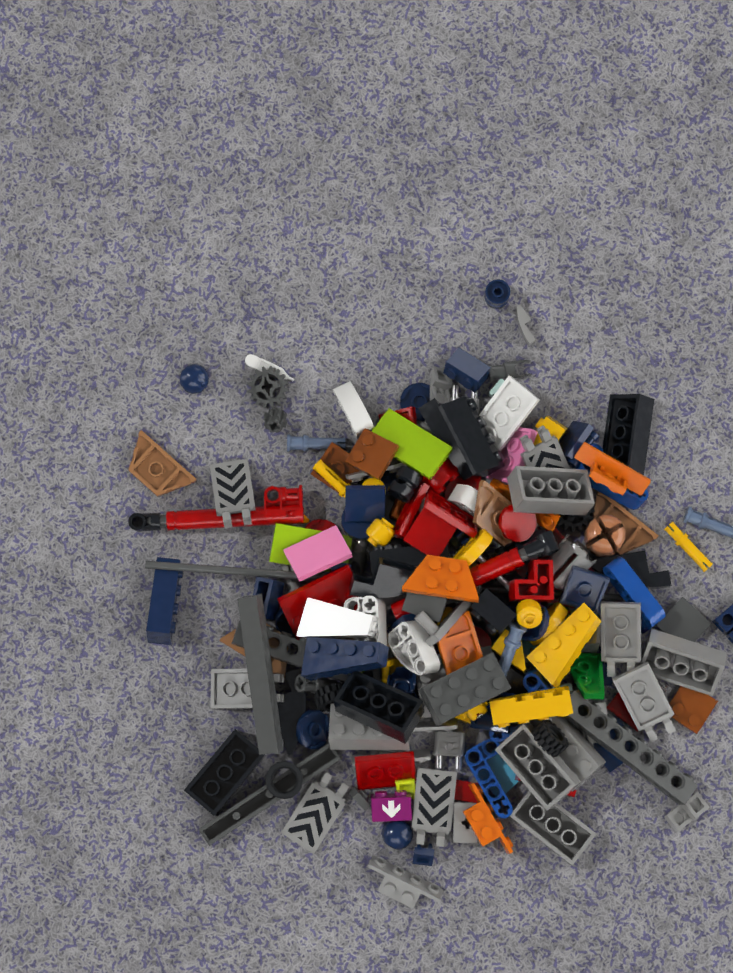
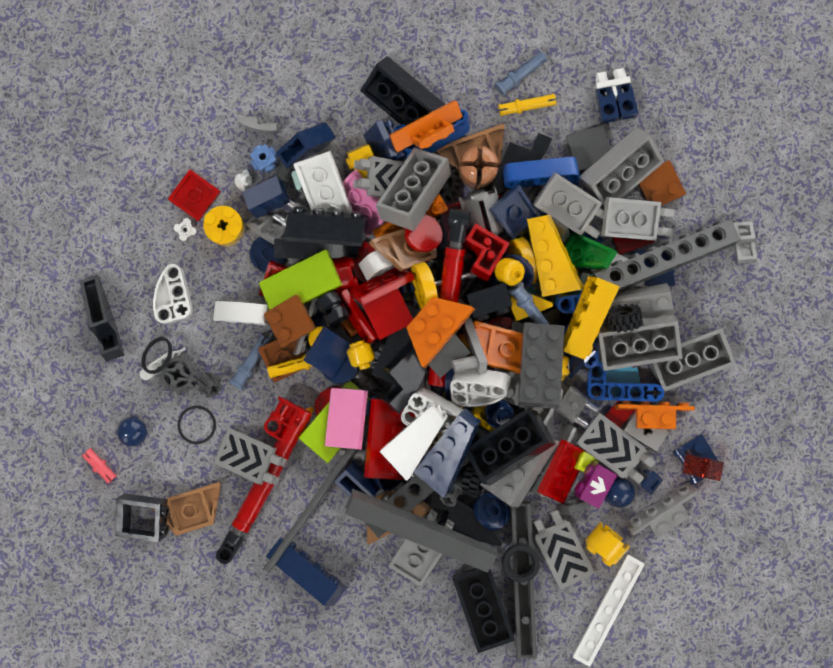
camera: 55 degrees left, 5 degrees up
(118, 415) = (123, 517): none -> black window
(148, 368) = (99, 466): none -> coral pin
(229, 447) = (196, 442): none -> black piece
(273, 370) = (165, 362): none -> black piece
(276, 293) = (101, 318): none -> black slope
(288, 885) = (608, 610): none -> white plate
(325, 339) = (165, 298): none -> white beam
(345, 847) = (606, 544): none -> yellow brick
(397, 323) = (185, 234): none -> white plate
(420, 360) = (213, 221): none -> yellow brick
(430, 307) = (194, 195): none -> red tile
(464, 893) = (702, 467): none -> clear red slope
(469, 342) = (243, 180): none -> white plate
(474, 888) = (697, 447): none -> dark blue plate
(497, 294) = (217, 131): dark blue wheel -> none
(498, 354) = (266, 165): none -> medium blue brick
(533, 376) = (305, 144): none -> dark blue slope

